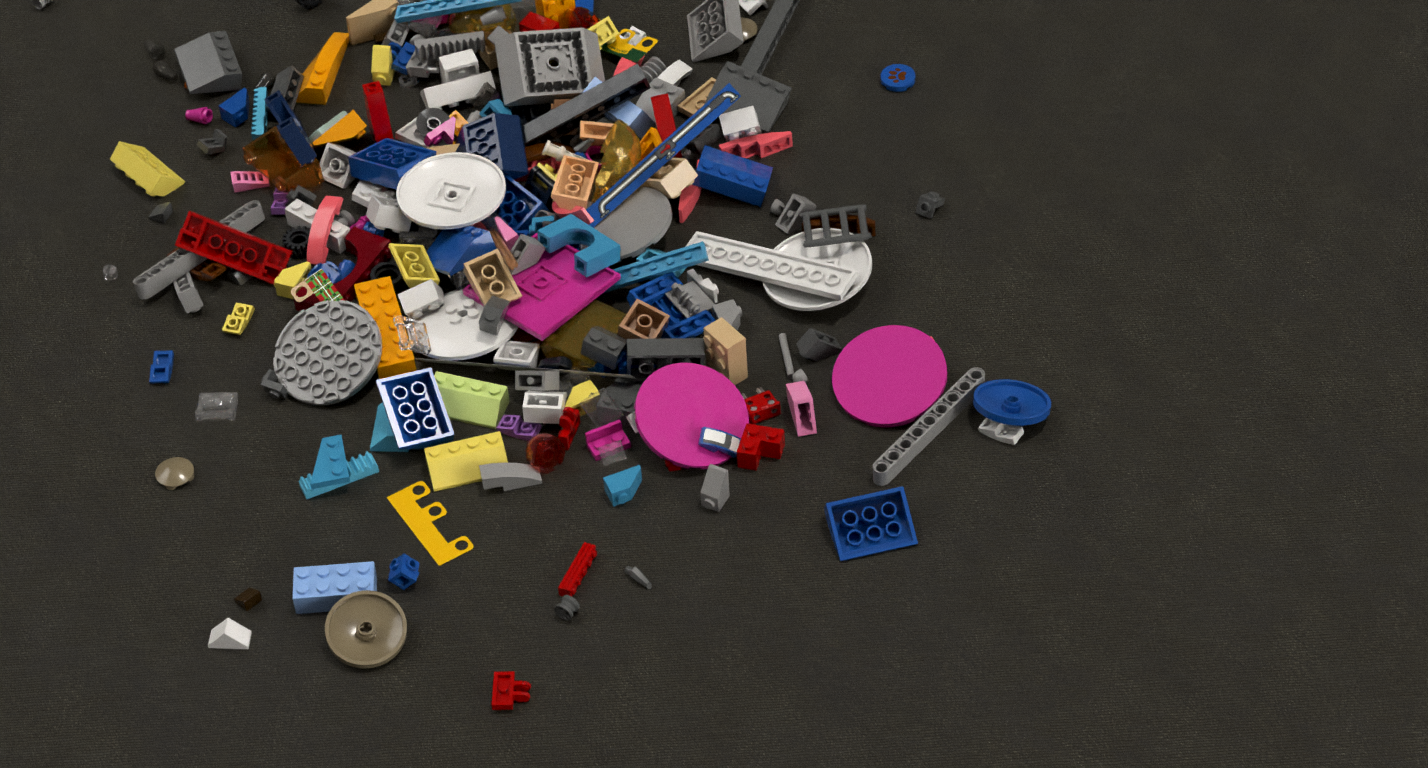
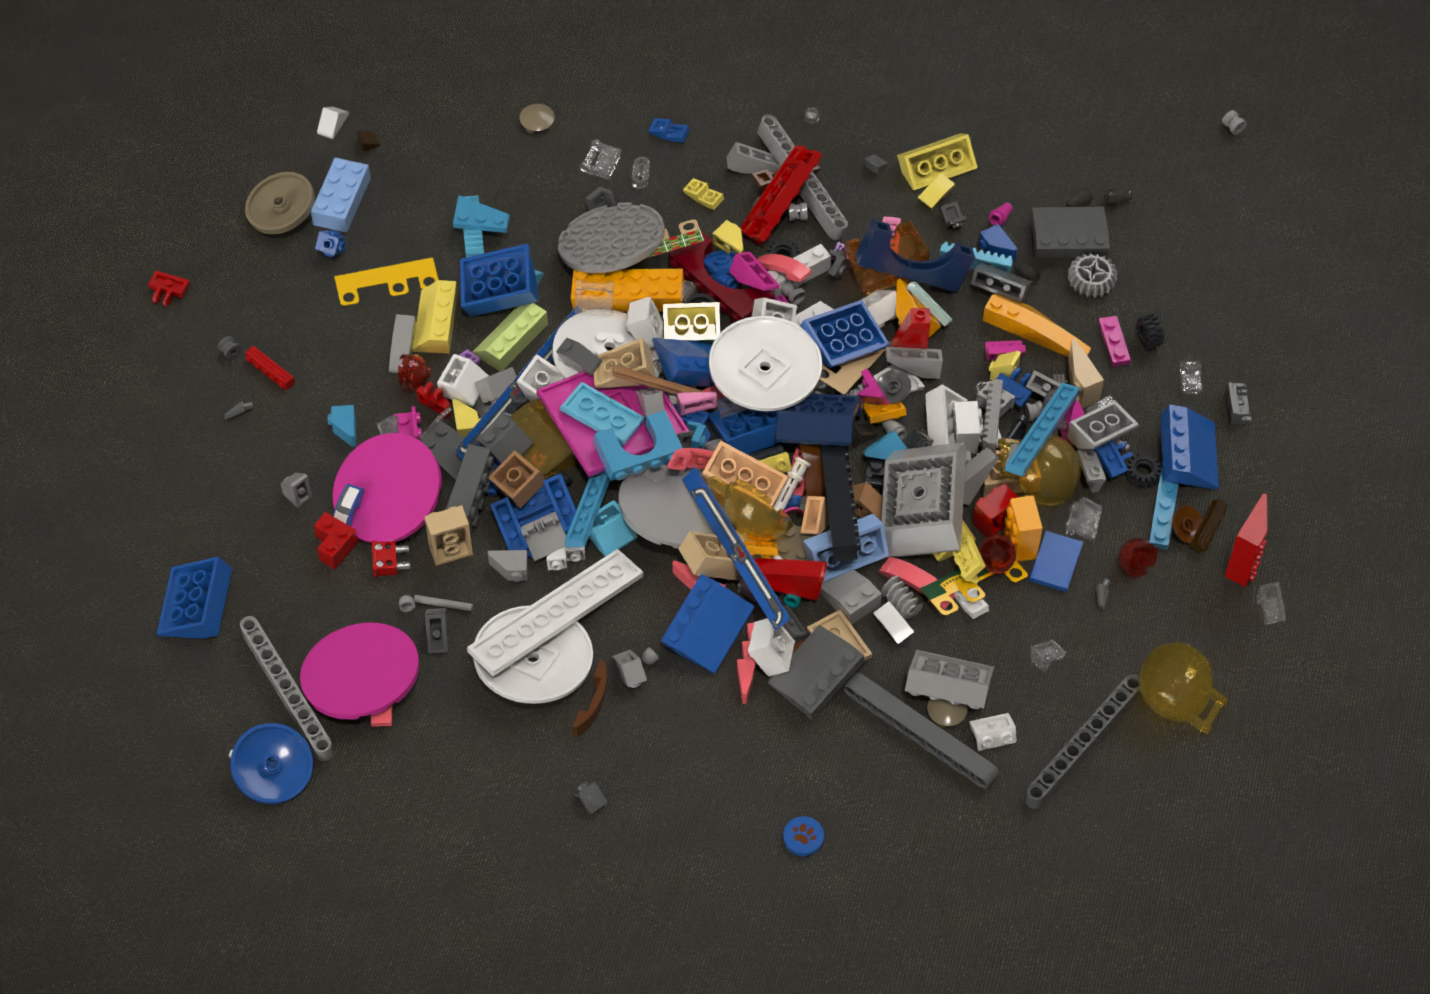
camera: 105 degrees right, 10 degrees up
(186, 160) = (936, 191): none -> light yellow slope
(224, 372) = (640, 172): none -> clear beam
(254, 44) = (1103, 277): none -> light grey gear
(321, 20) = (1114, 341): none -> dark pink plate
(340, 240) = (750, 272): none -> dark pink slope
(361, 72) = (997, 348): none -> dark pink bracket
(397, 115) = (918, 361): none -> light grey slope
(549, 283) = (602, 412): none -> medium azure tile
(801, 408) = (364, 587): bright pink slope -> none
(842, 212) = (596, 697): dark grey bar -> none

